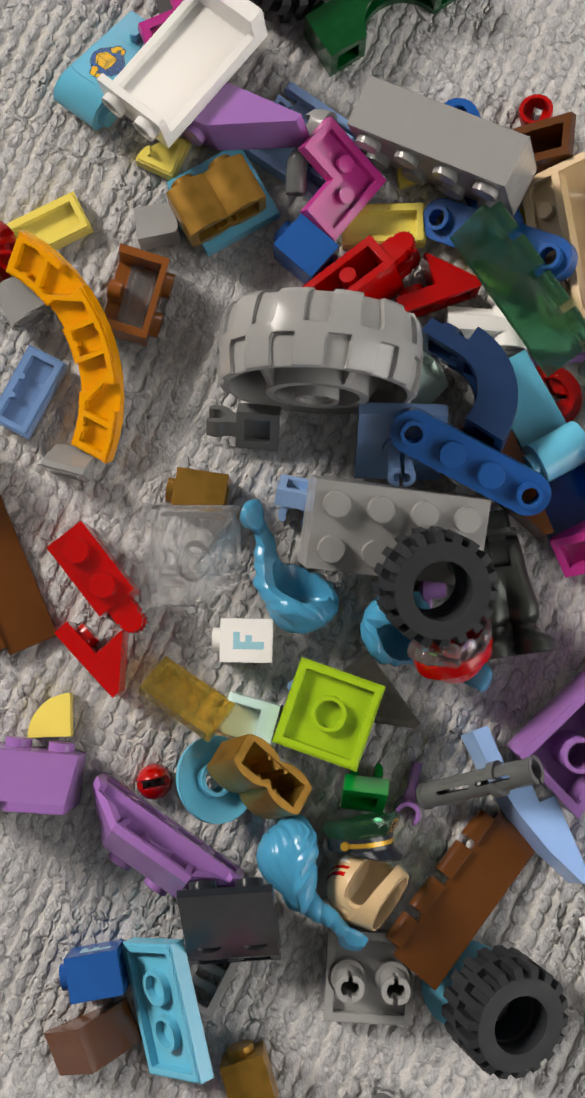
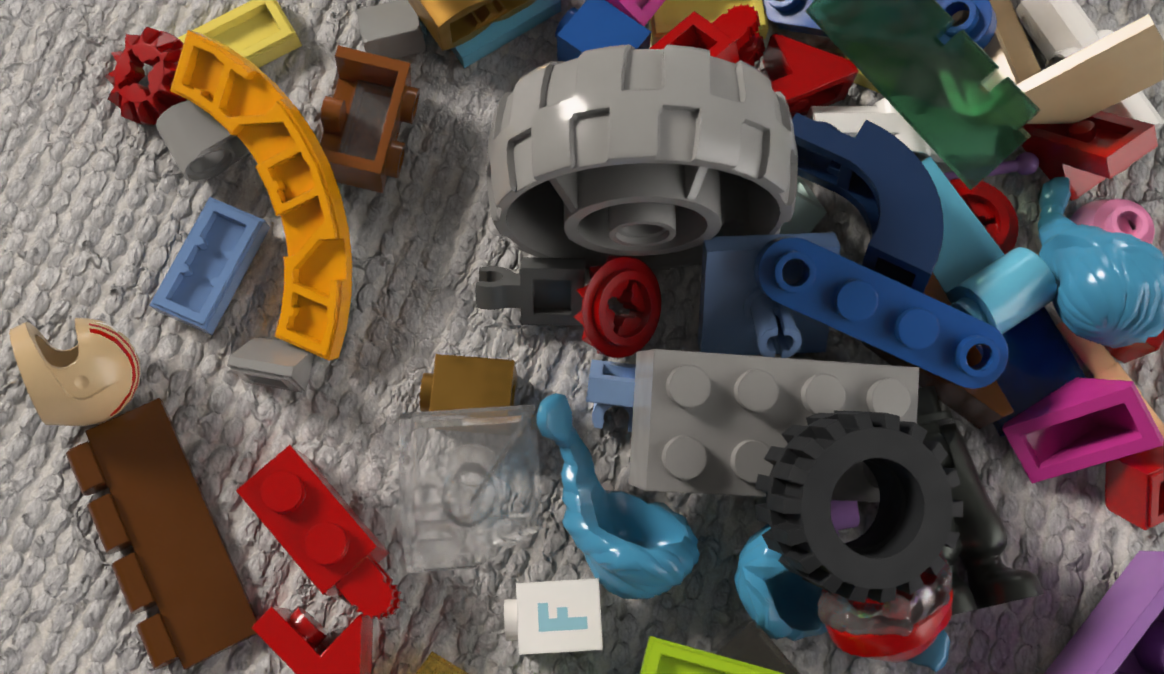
camera: 10 degrees left, 10 degrees down
(297, 458) = (633, 287): none -> red gear

